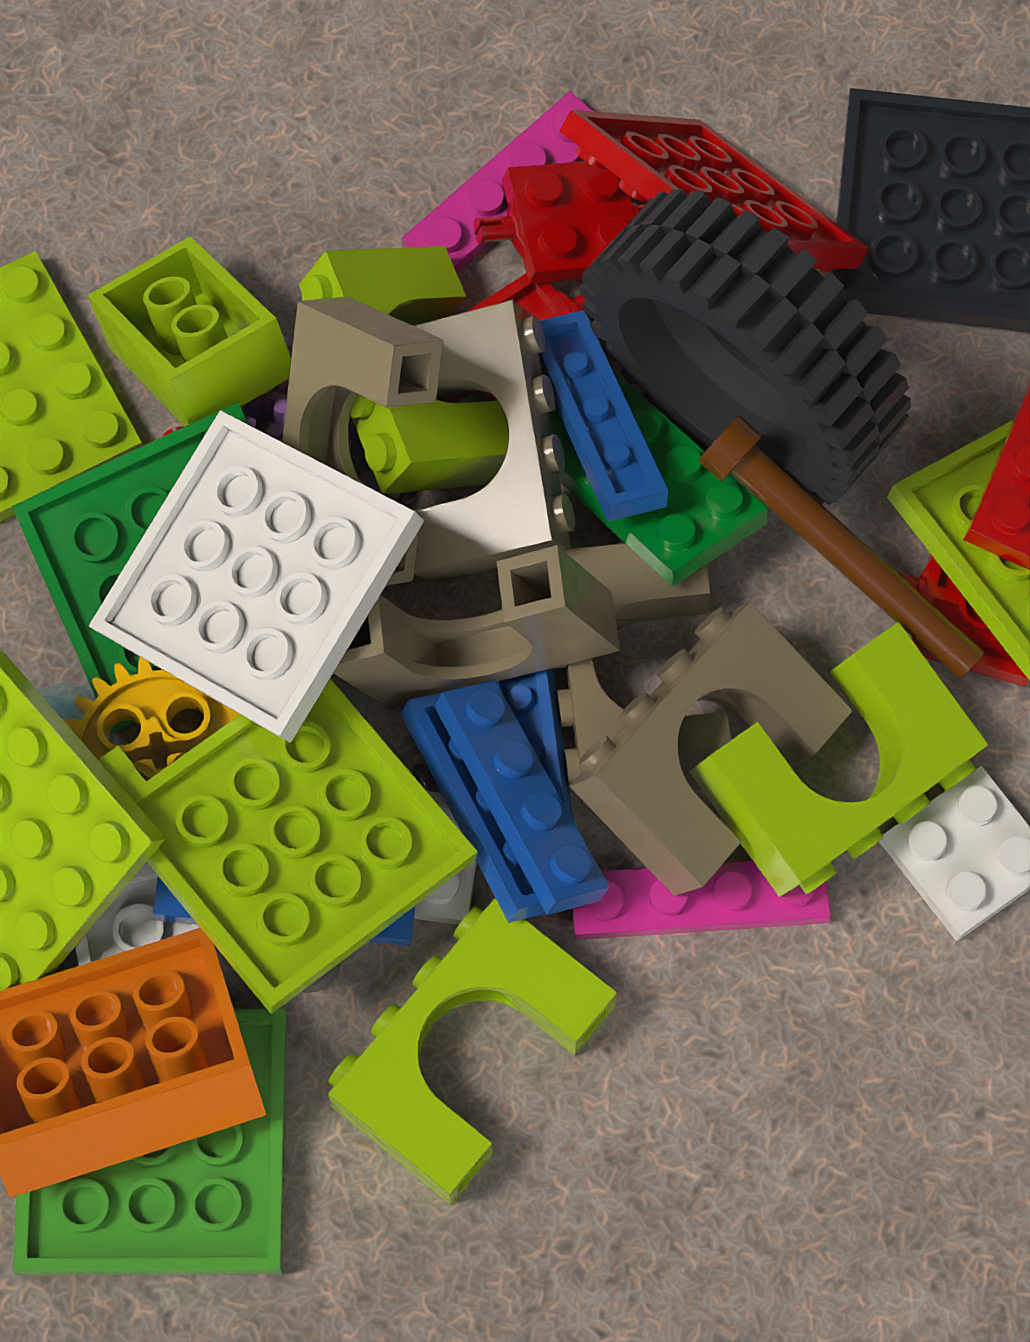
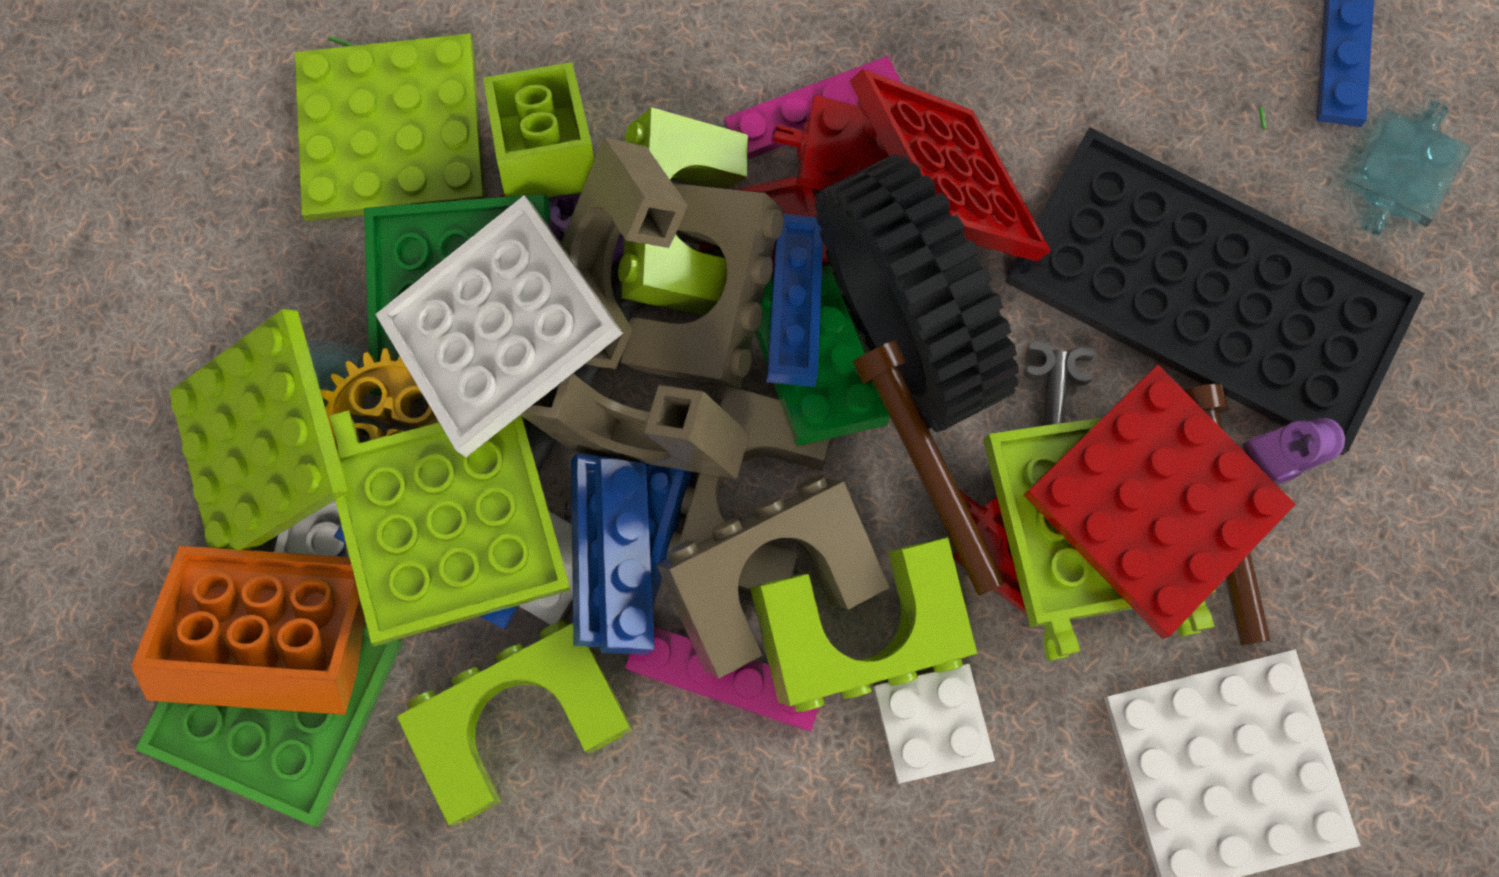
camera: 25 degrees right, 5 degrees up
(938, 383) = (1059, 366): none -> flat silver bar

